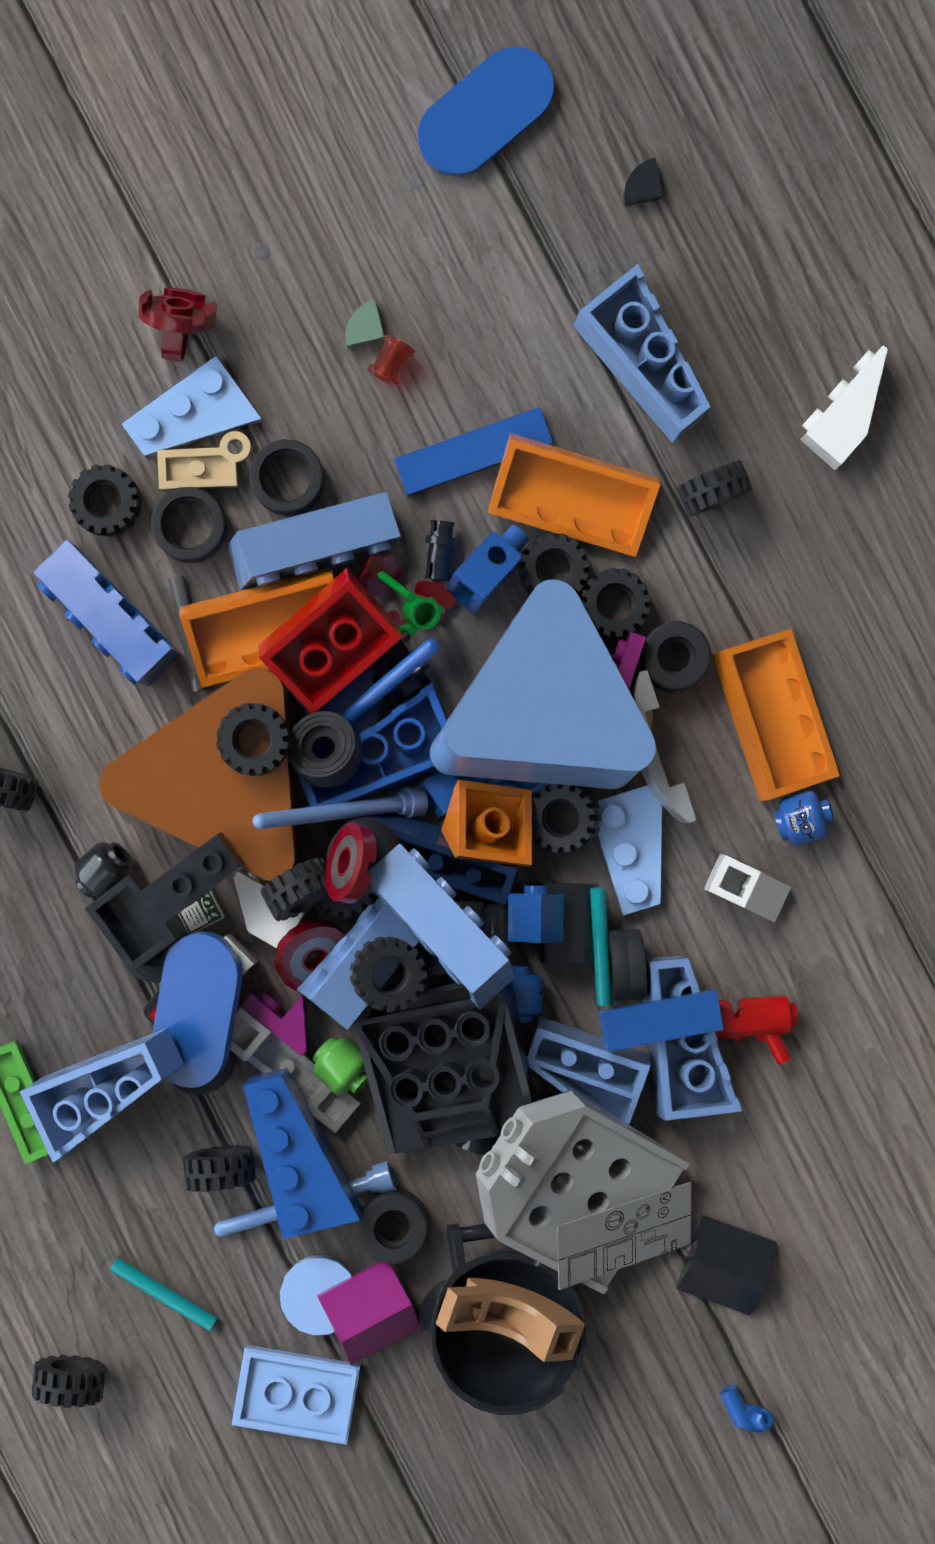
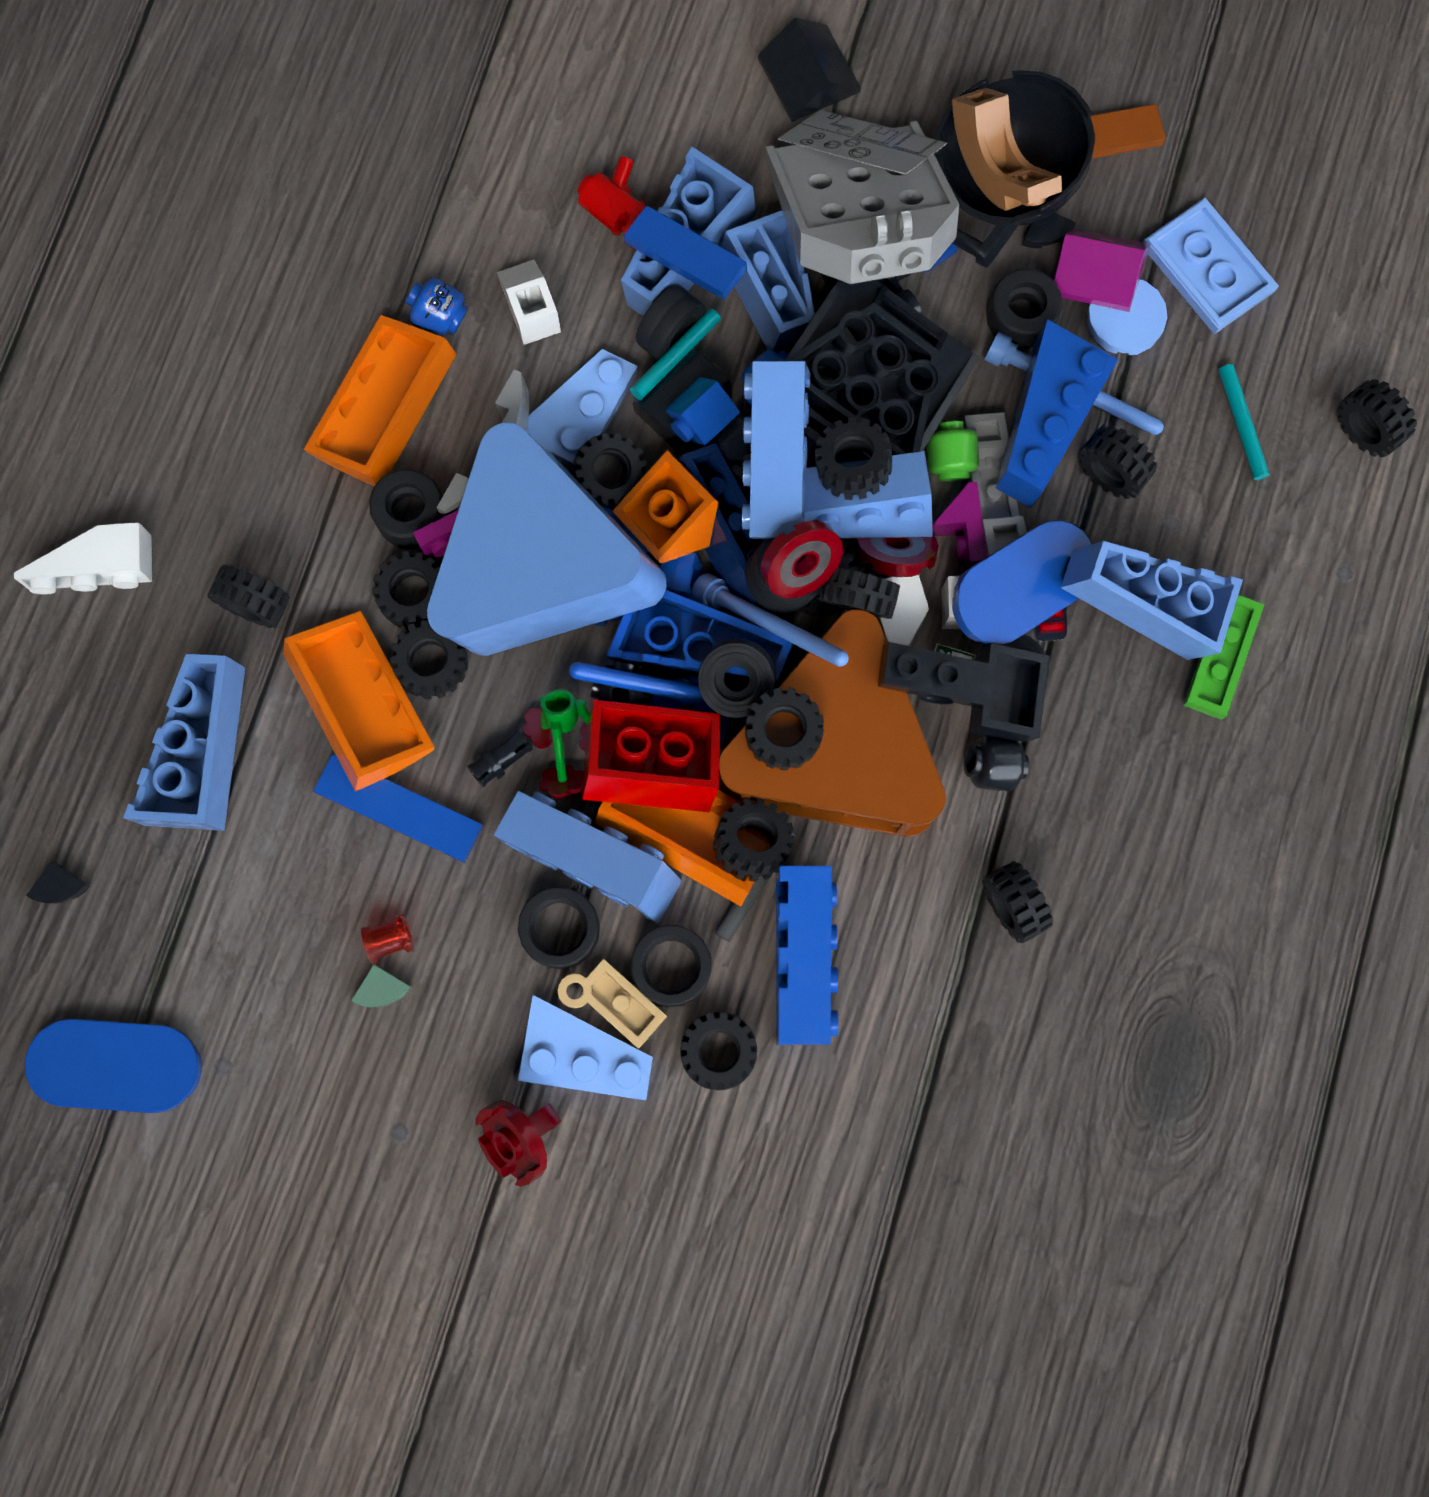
camera: 135 degrees left, 10 degrees down
(206, 630) = (760, 818): none -> black tyre
(455, 1441) = (1127, 130): none -> dark orange tile
(479, 577) = (478, 703): blue torso -> none

